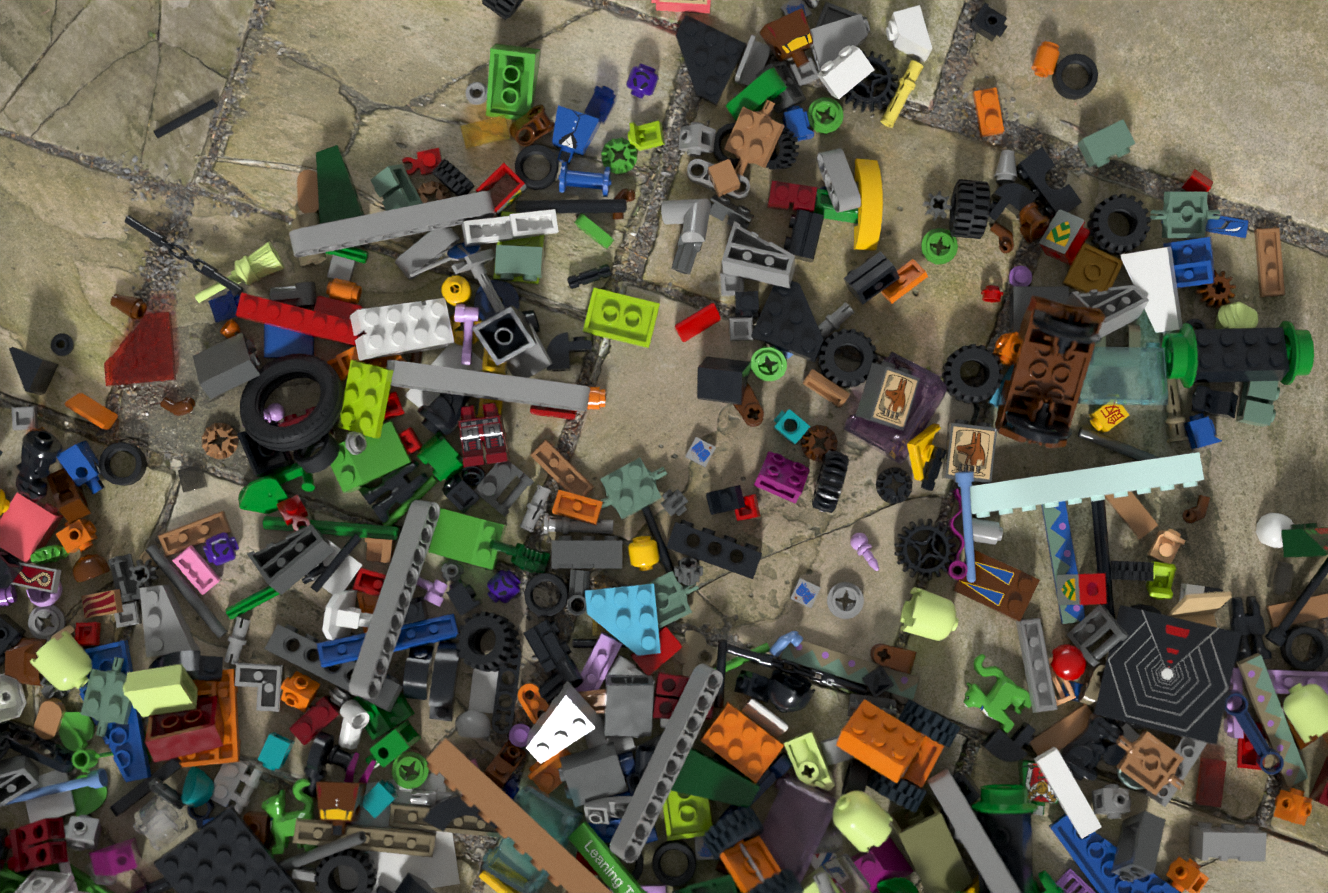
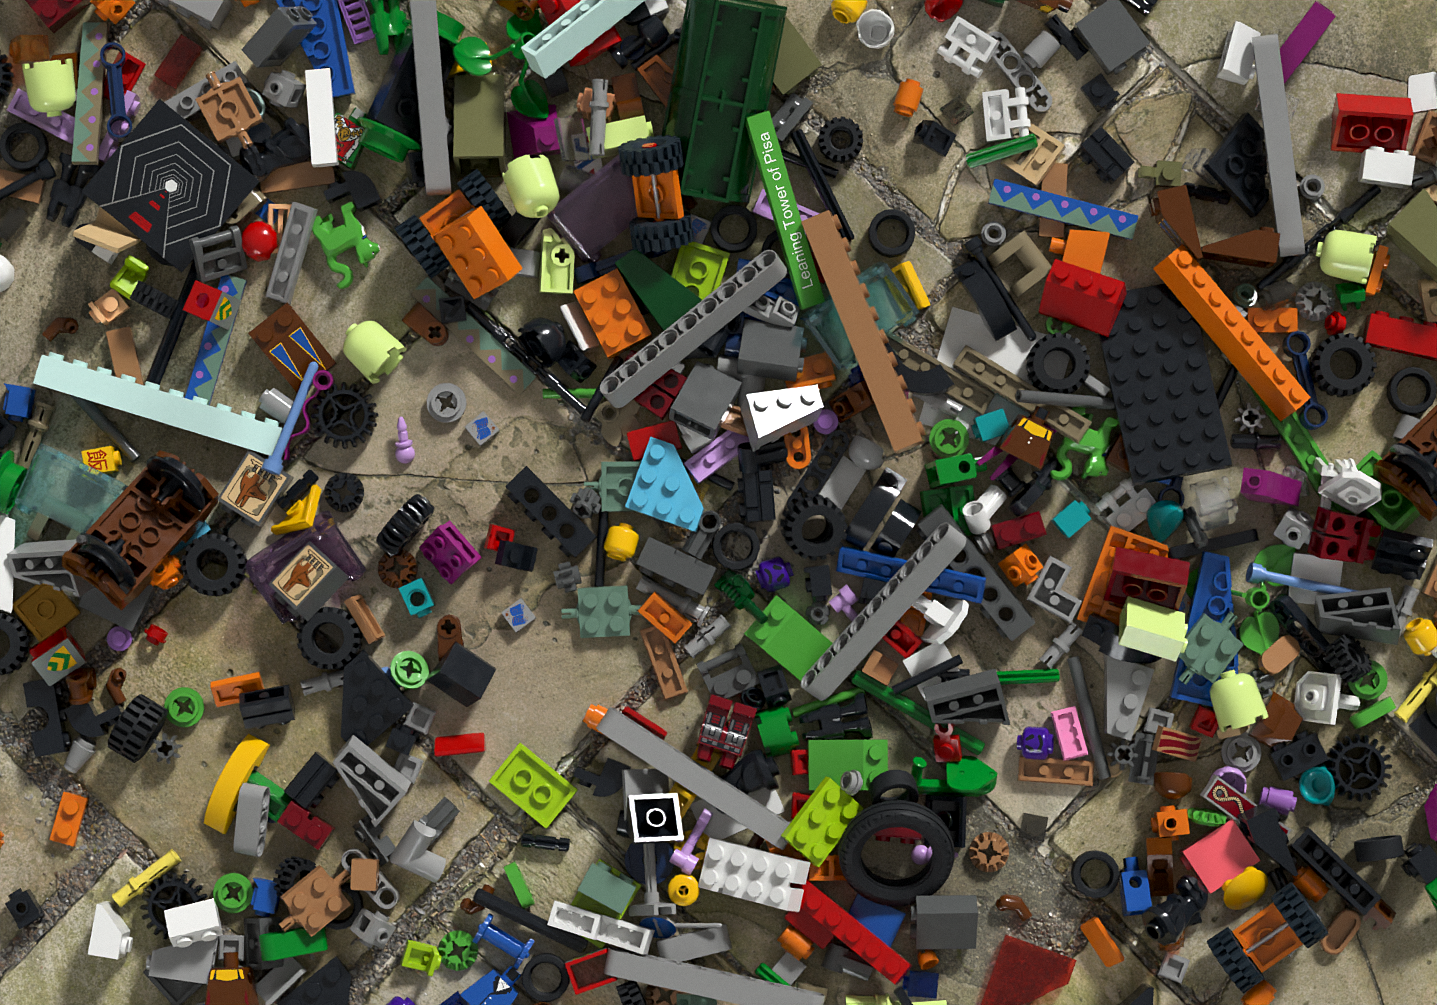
camera: 160 degrees left, 0 degrees up
(783, 641) = (524, 391): medium blue arm -> none

